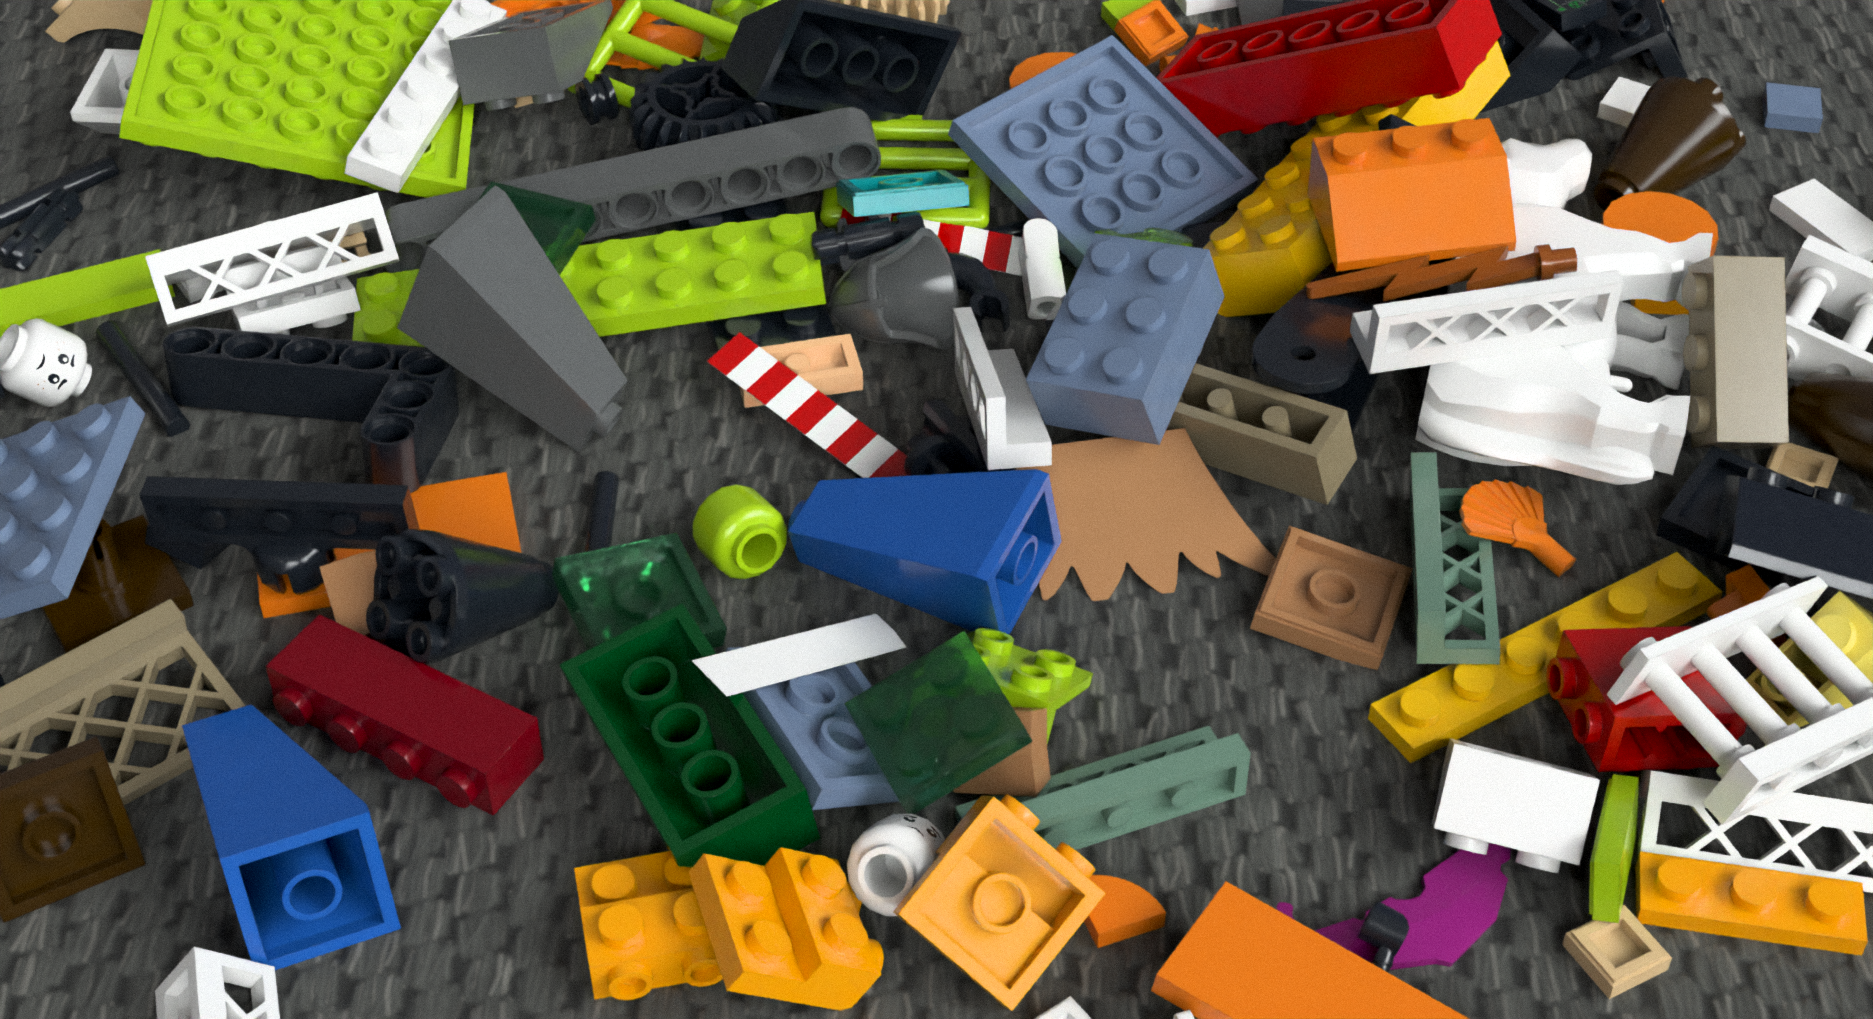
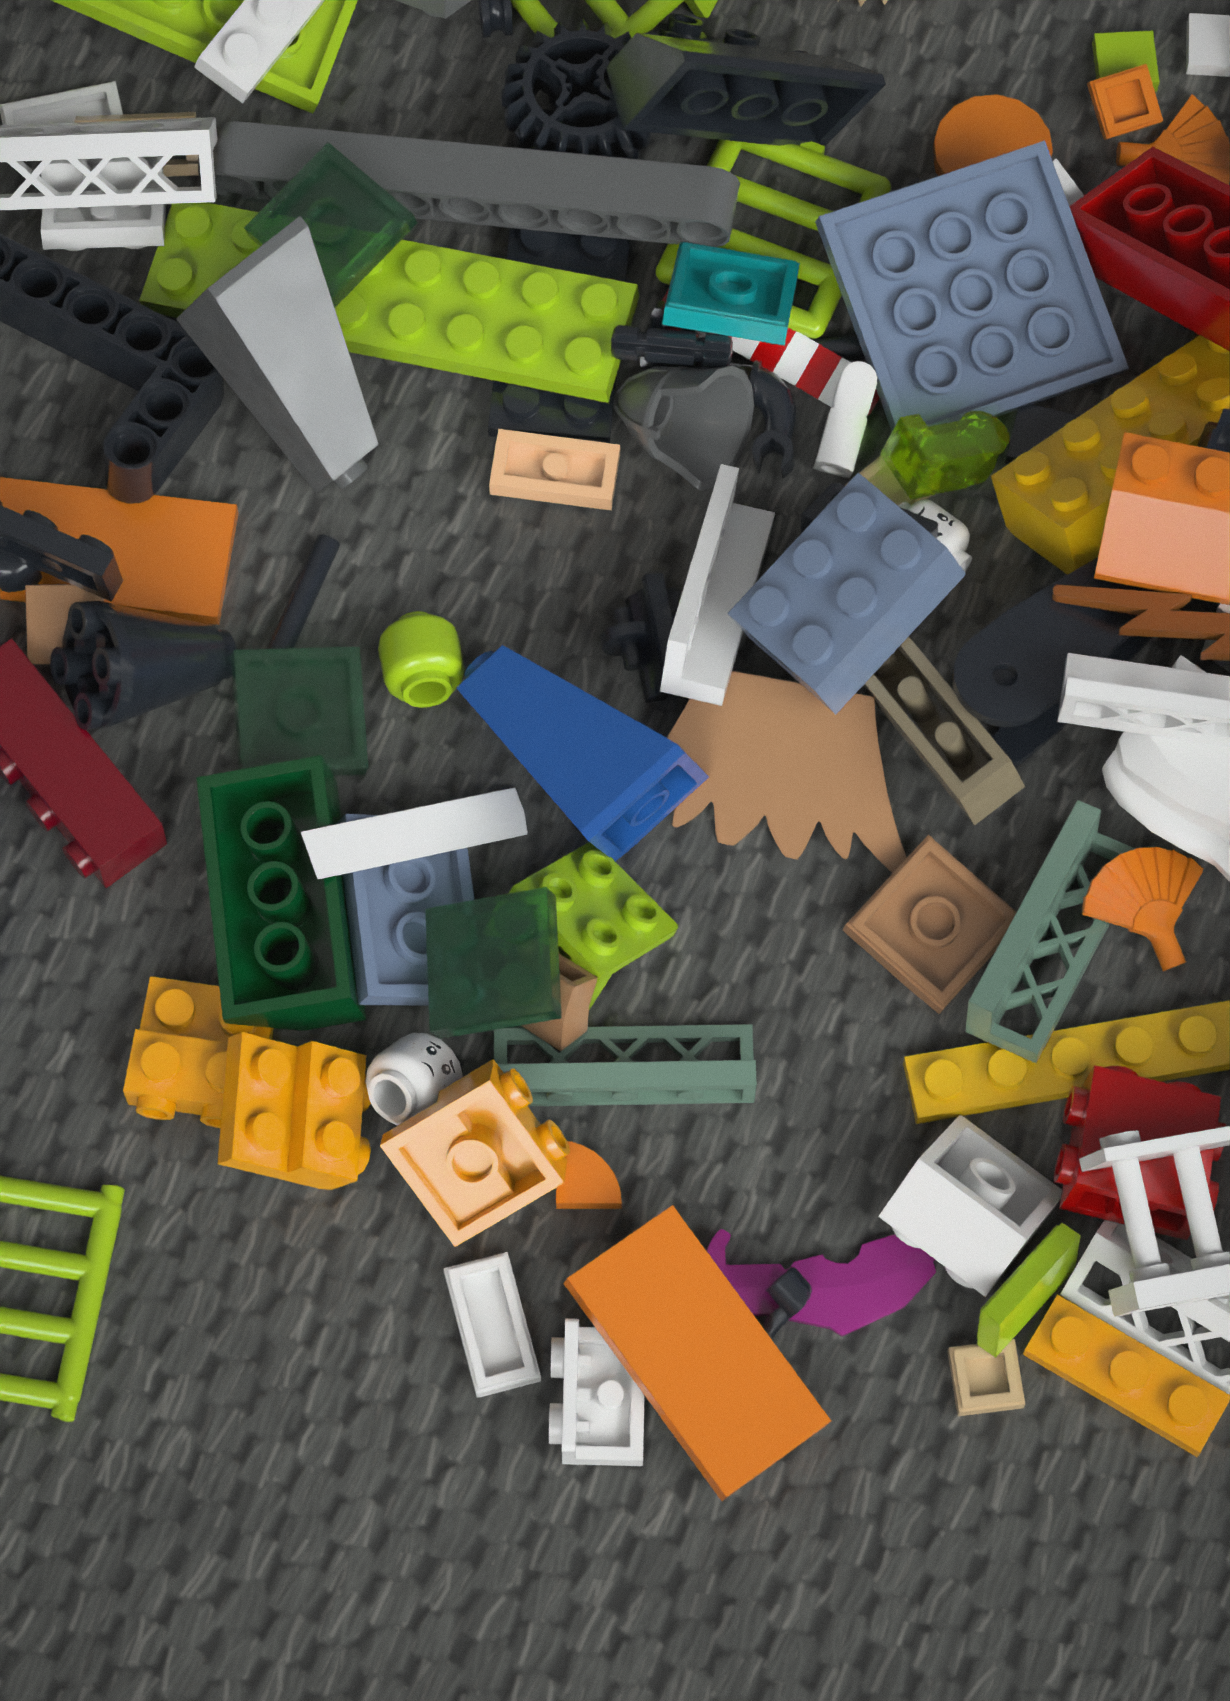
camera: 20 degrees right, 25 degrees up
(808, 409) = (543, 529): sticker -> none

